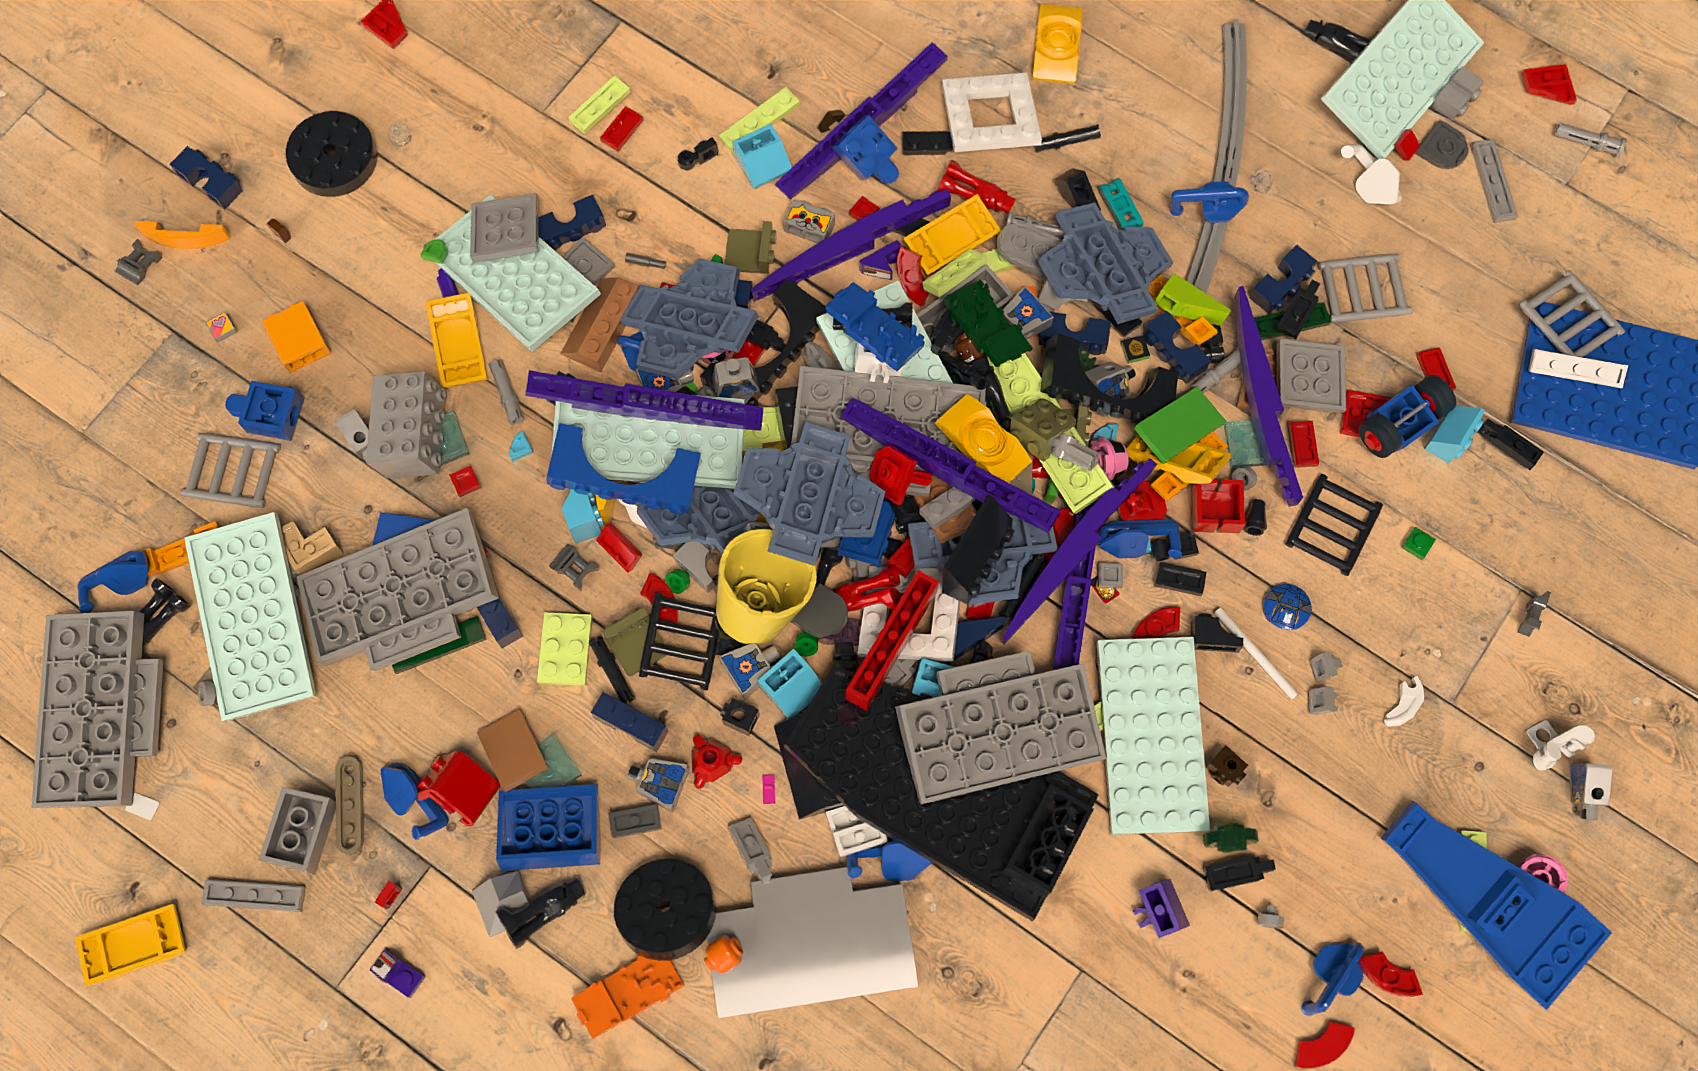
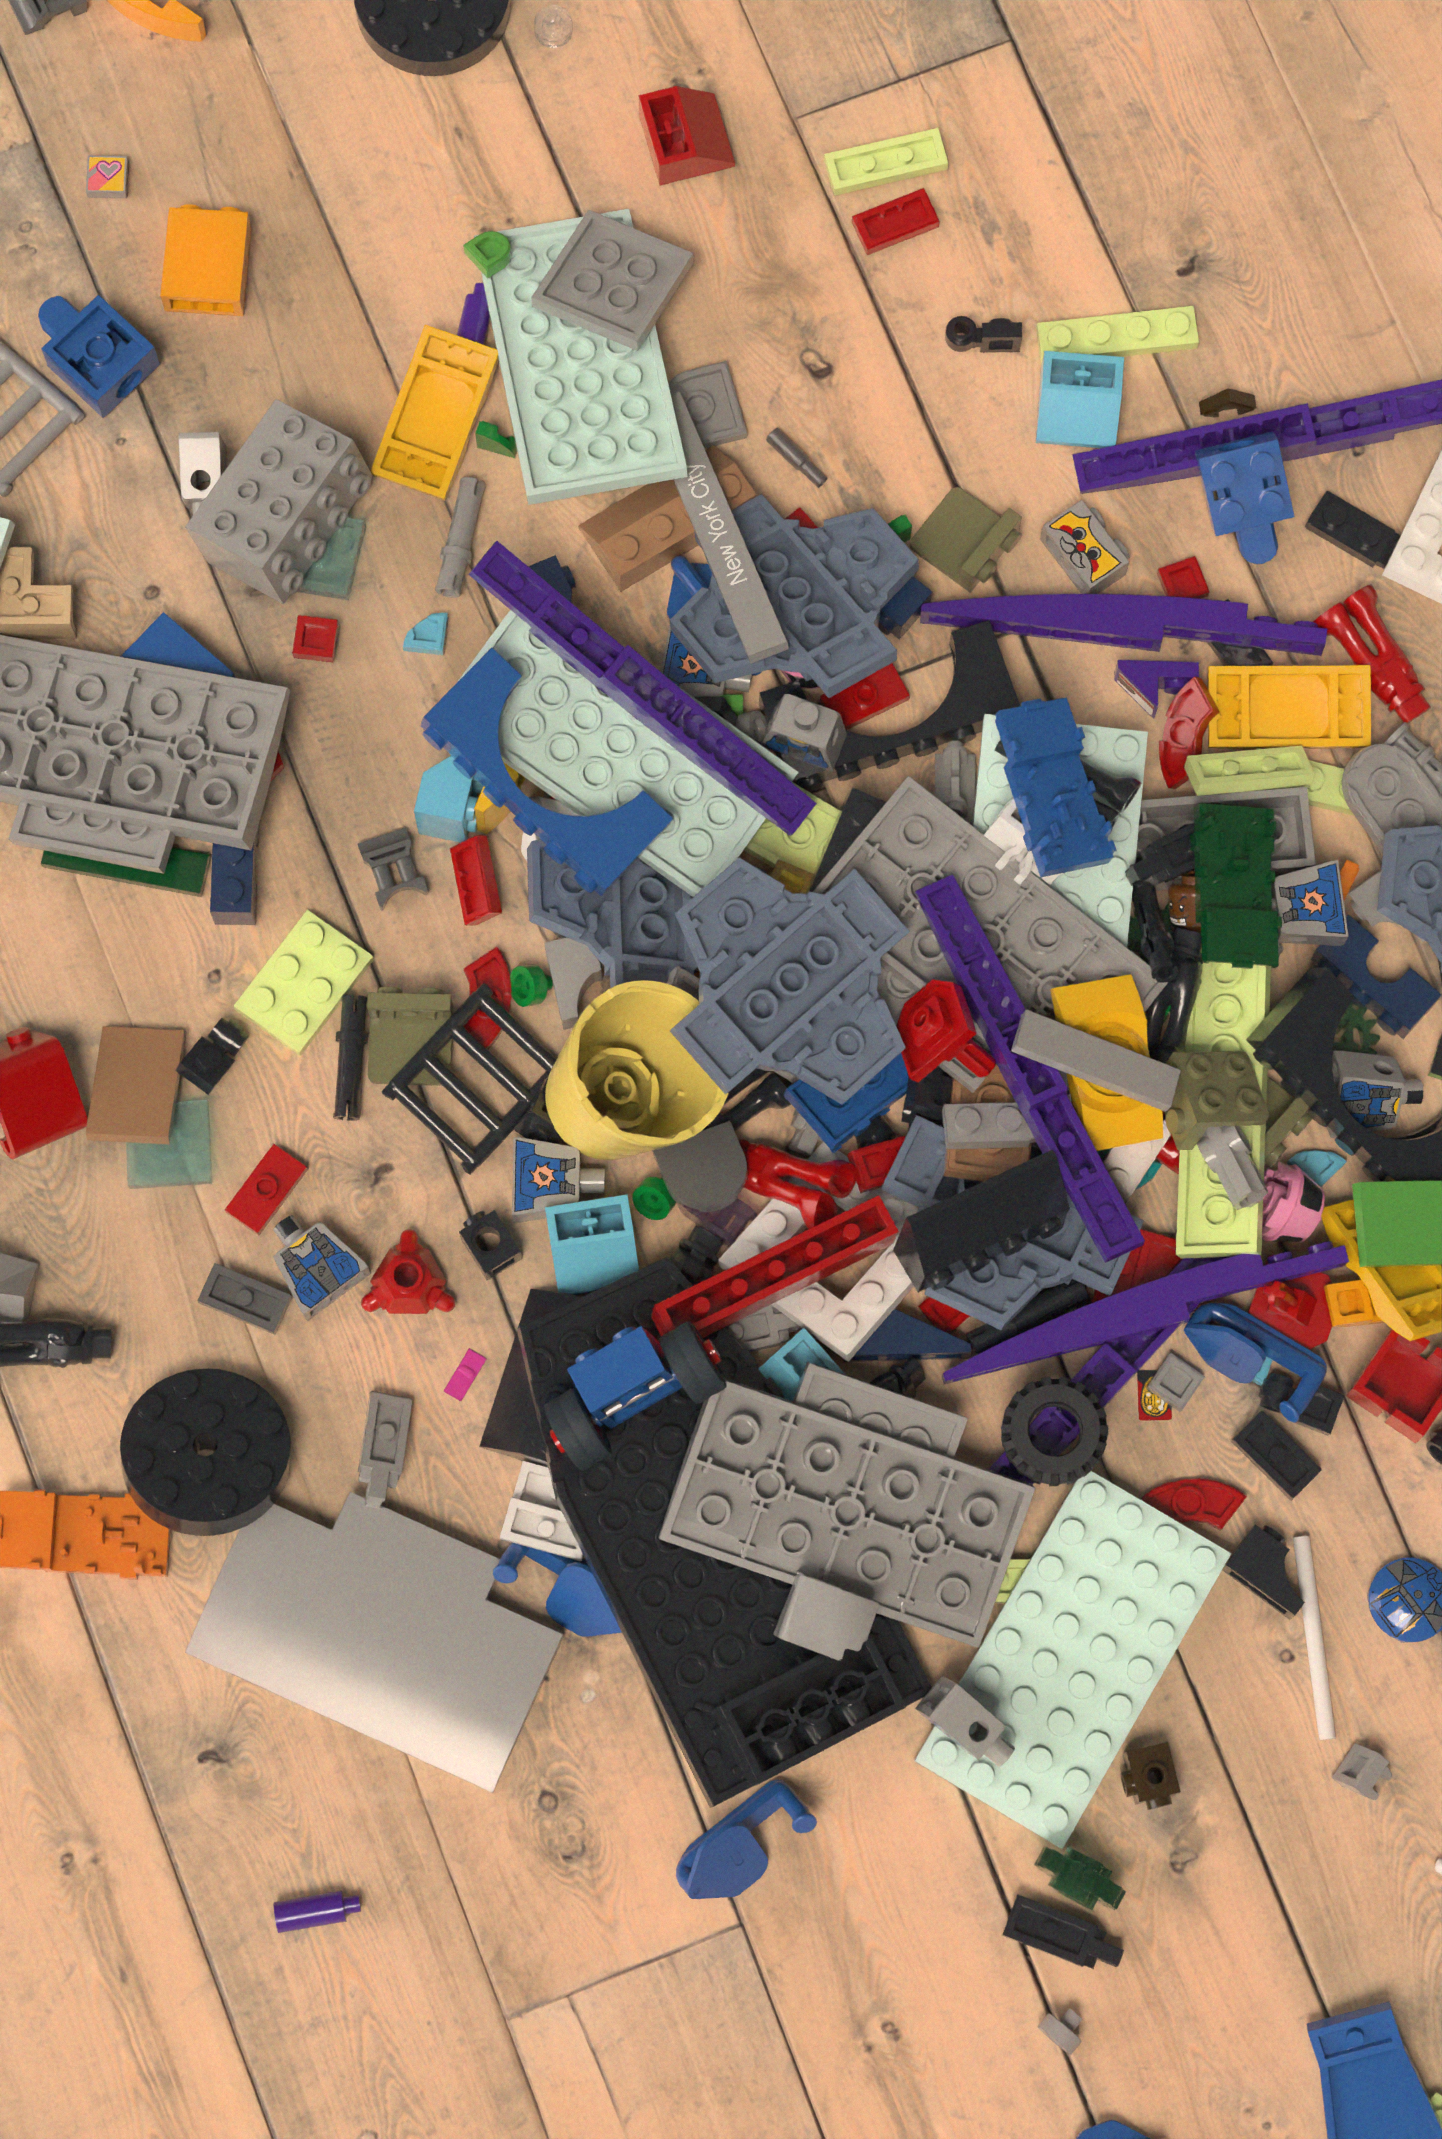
camera: 30 degrees right, 5 degrees up
(279, 230) = (281, 74): reddish brown tile -> none
(493, 338) = (491, 441): none -> green tile
(494, 146) = (684, 133): none -> red slope
(542, 716) = (208, 1061): none -> black plate
(548, 828) = (117, 1230): blue slope -> none
(587, 220) = (748, 339): dark blue arch -> none
(611, 761) = (266, 1189): none -> red plate
(630, 721) = (327, 1150): dark blue arch -> none
(643, 316) = (725, 546): none -> light grey tile
(723, 954) = (245, 1568): orange head -> none
(765, 336) = (894, 690): black hinge -> none
(857, 734) = (625, 1381): none -> brick
(979, 440) = (1096, 1060): none -> light grey tile
(1027, 789) = (825, 1617): none -> light grey piece
(1050, 493) = (1166, 1204): bright green tile -> none
(1053, 938) = (727, 1855): none -> blue piece
(1083, 613) = (1059, 1394): none -> black tyre
(1126, 797) = (955, 1711): none -> light grey torso
(1163, 909) = (913, 1913): brick -> none
(1325, 666) = (1402, 1725): light grey tile -> none

